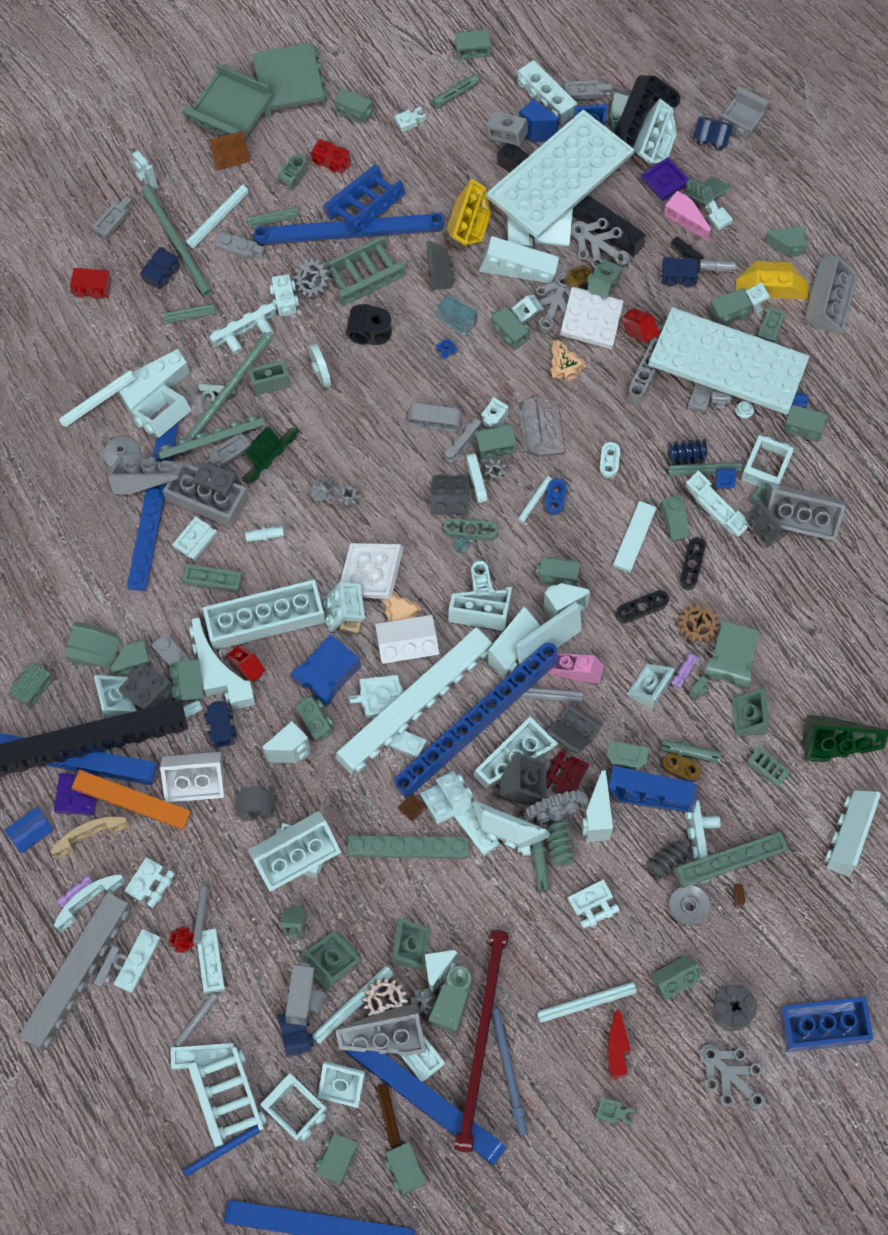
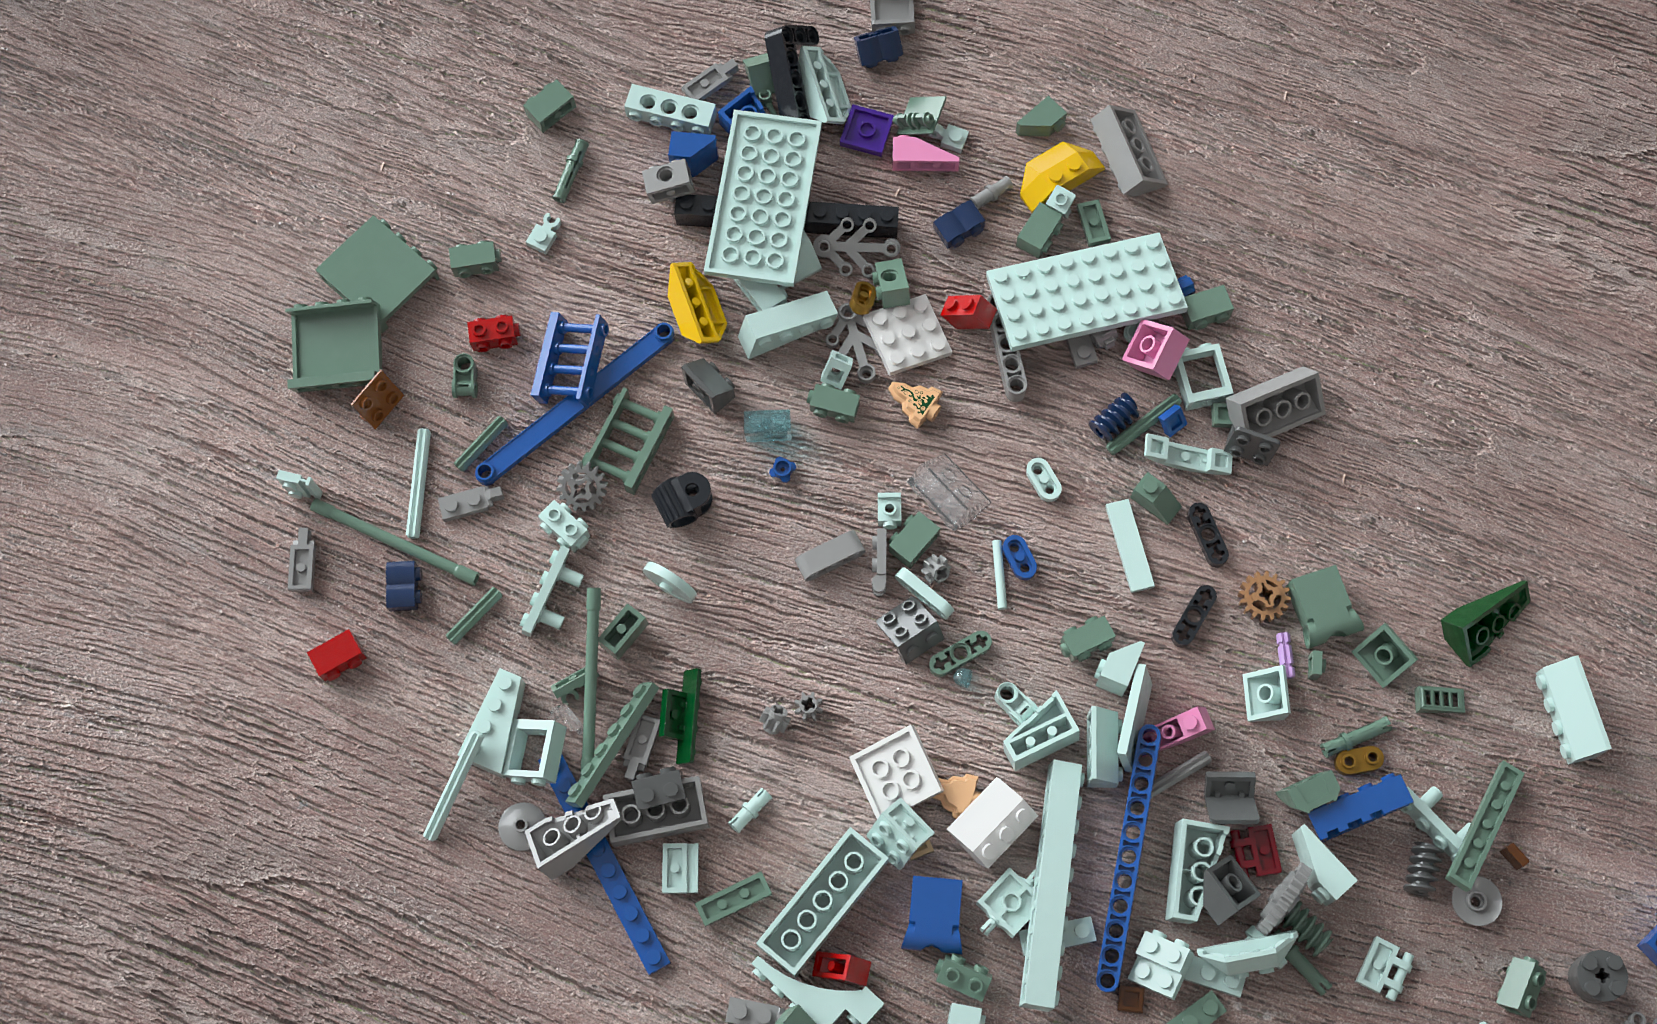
camera: 35 degrees left, 5 degrees up
(686, 249) = (947, 195): black axle -> none
(746, 423) = (1155, 349): none -> bright pink brick

